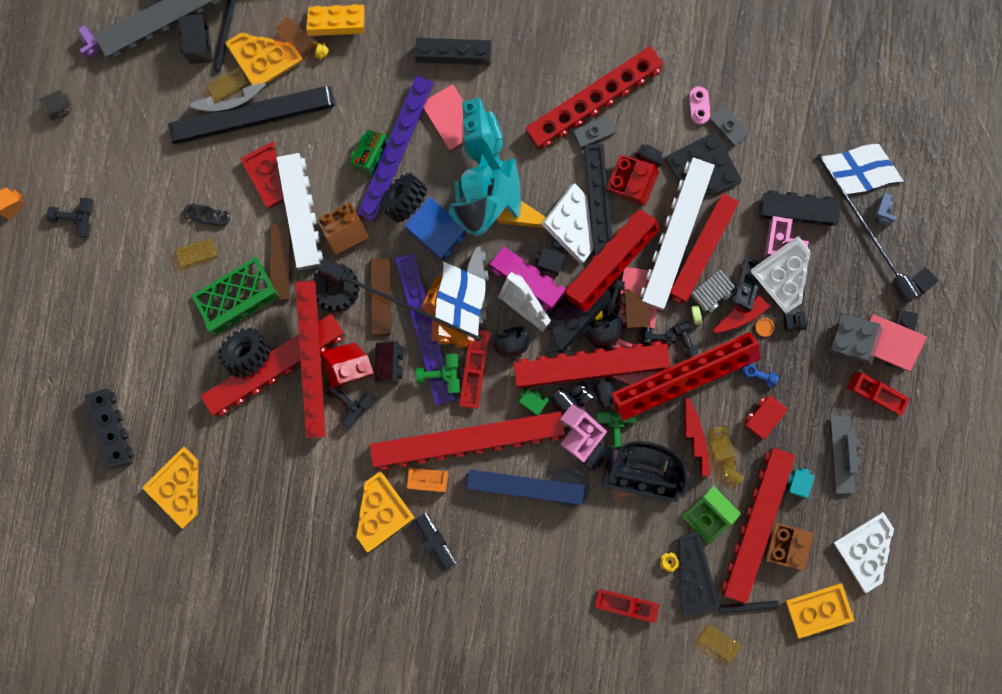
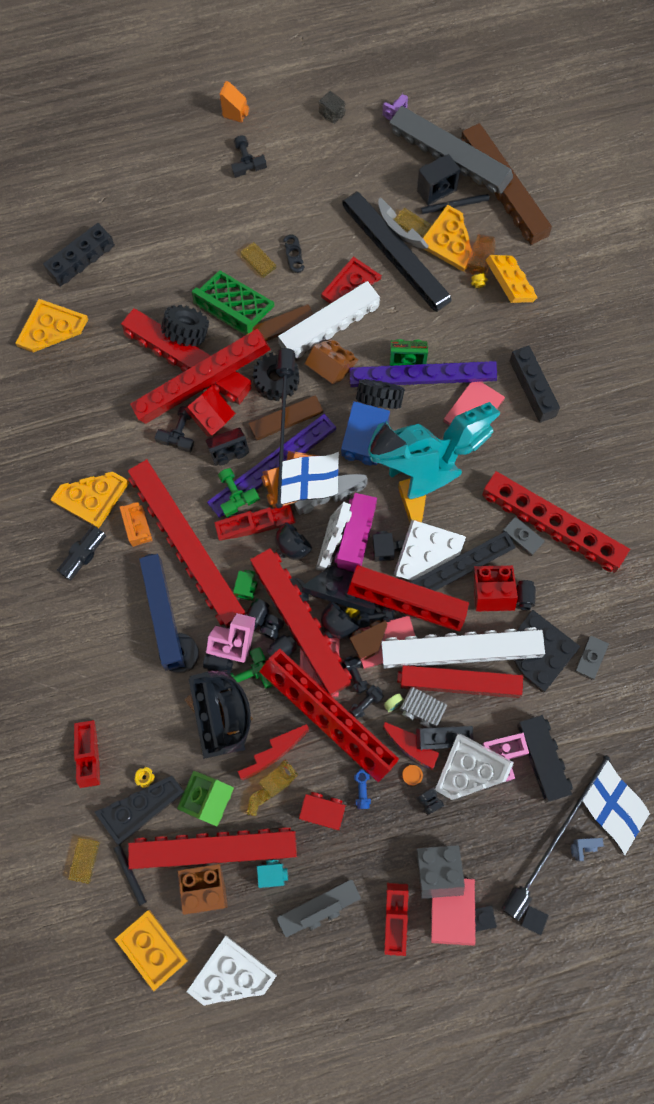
camera: 70 degrees right, 10 degrees down
(699, 104) = (598, 621): bright pink plate -> none

